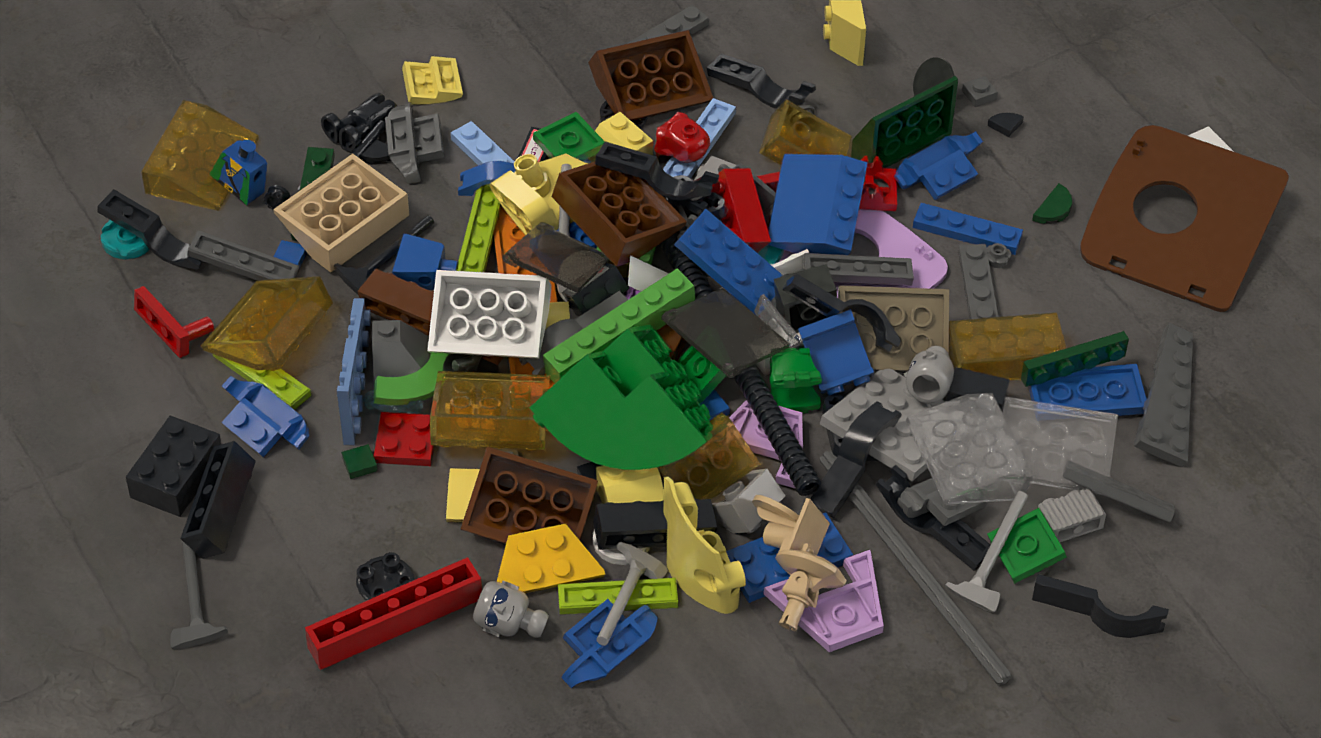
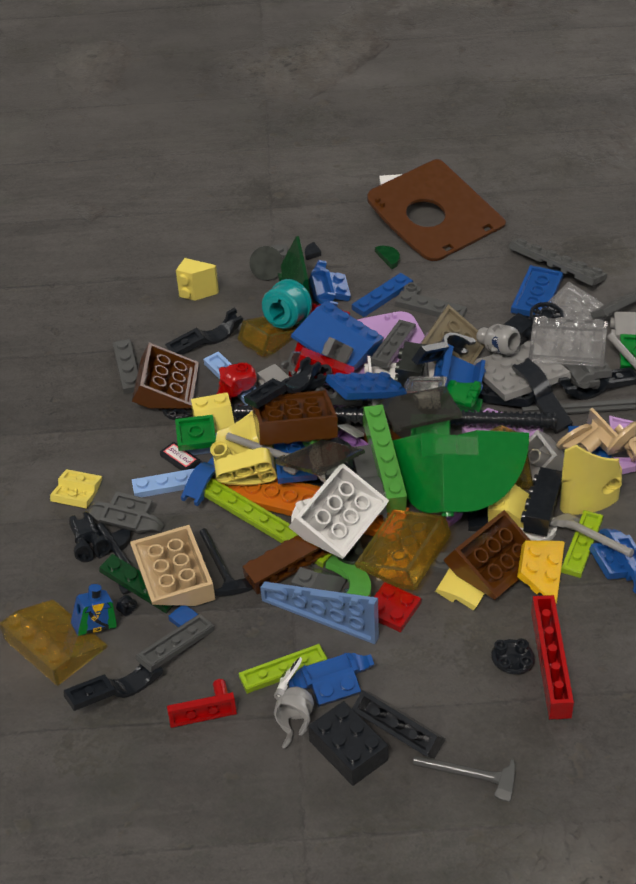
camera: 60 degrees left, 5 degrees down
(121, 242) = (98, 714): teal tile -> none
(201, 391) = (292, 704): none -> light grey hair
(270, 322) = (246, 645): clear yellow slope -> none
(359, 461) = (398, 638): dark green tile -> none
(420, 259) = (244, 544): blue torso -> none
(505, 609) = (576, 597): light grey piece -> none
(776, 205) = (337, 350): none -> dark grey bracket
(839, 125) = (286, 304): none -> teal wheel
(1003, 343) = (490, 302): clear yellow brick -> none
(1021, 409) = (549, 313): none -> black wheel
(1074, 359) = (520, 298): dark green plate -> none

